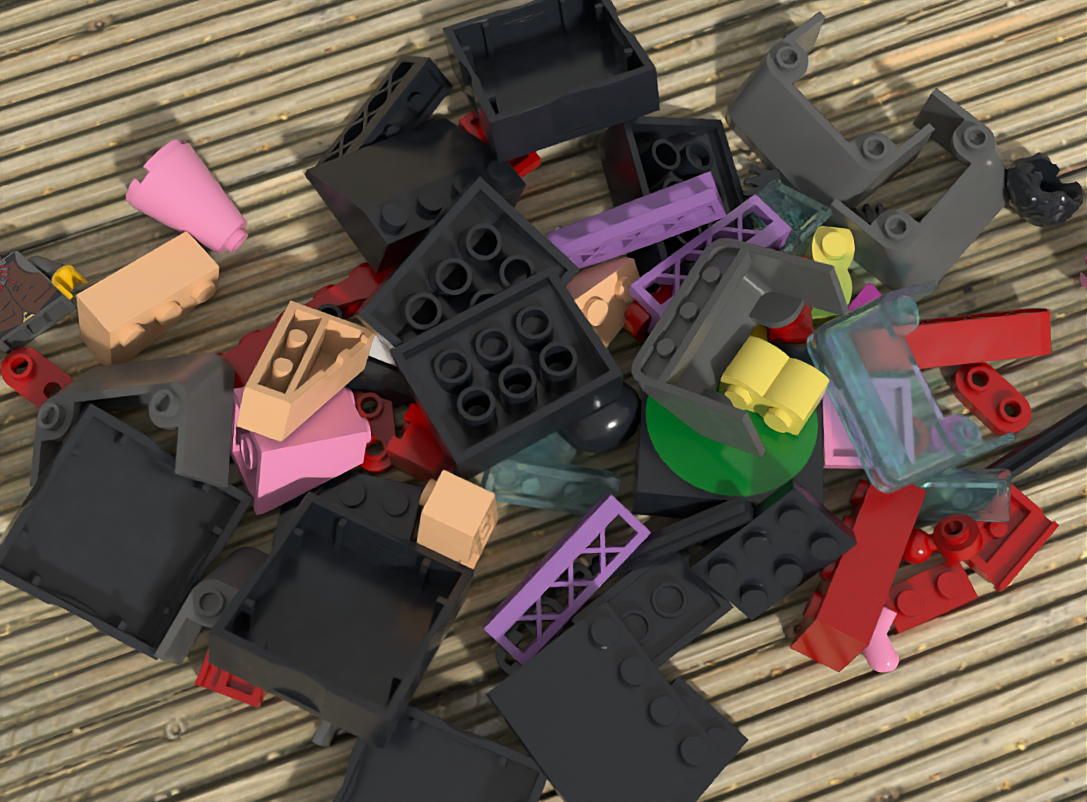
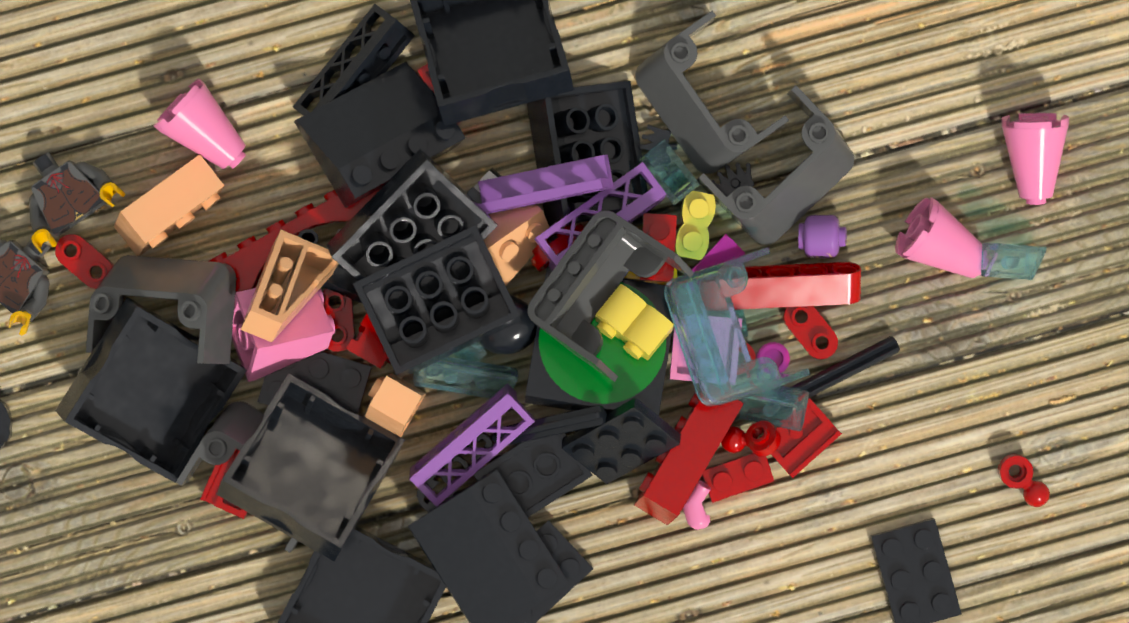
camera: 10 degrees right, 15 degrees up
(988, 279) = (821, 236): none -> medium lavender head
(1039, 193) = (874, 168): black hair -> none

